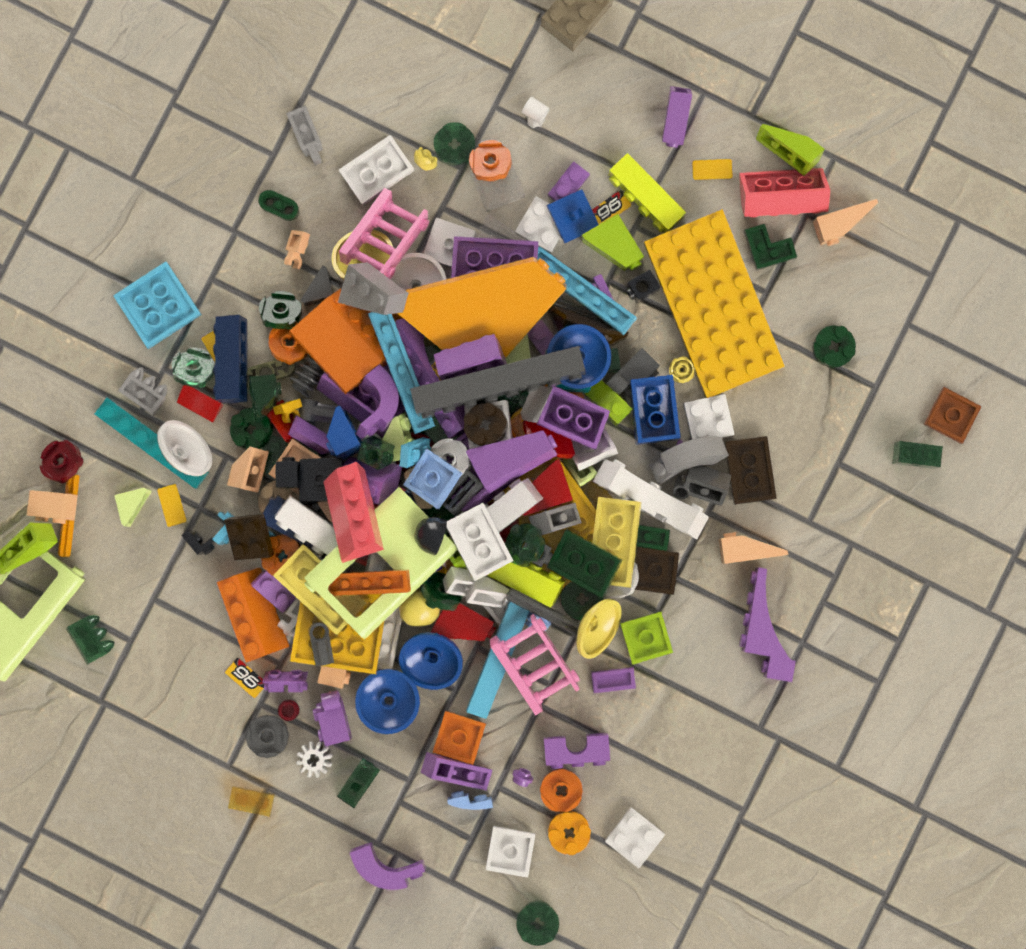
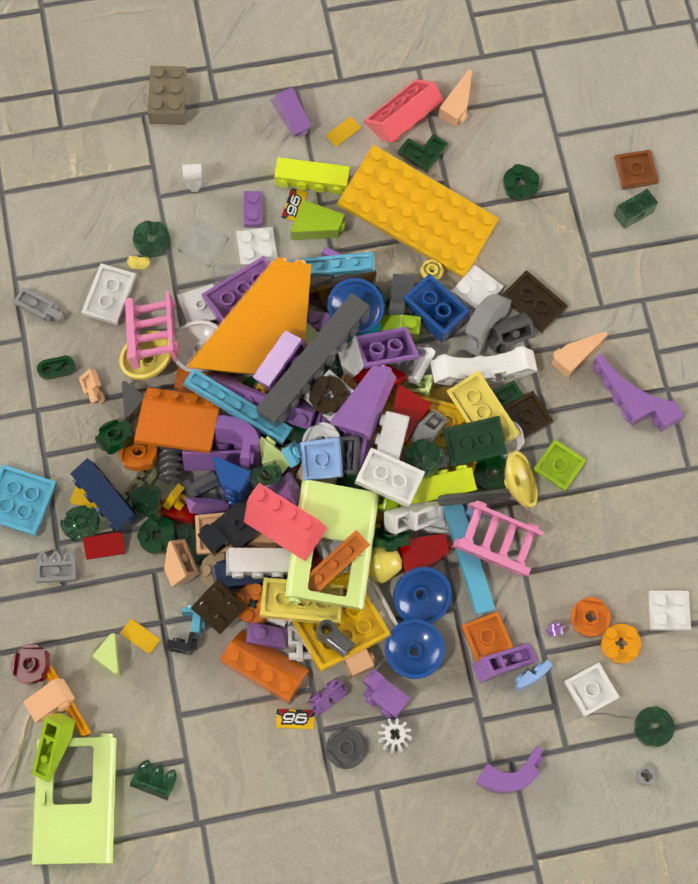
camera: 40 degrees left, 15 degrees down
(141, 436) = (89, 602): teal plate -> none
(184, 448) = (119, 582): white dish -> none
(251, 801) = (372, 805): clear yellow plate -> none
(288, 710) = (346, 716): dark red plate -> none
(358, 783) = (441, 728): clear green slope -> none
(371, 290) = (173, 363): light grey wedge -> none
(430, 534) = (353, 495): black helmet -> none
(493, 171) = (190, 237): orange plate -> none
(572, 216) = (273, 225): blue piece -> none
(595, 751) = (565, 592): medium lavender arch -> none
(613, 680) = (561, 513): medium lavender tile -> none
(646, 278) = (359, 229): black brick -> none
(793, 148) = (385, 78): lime slope -> none

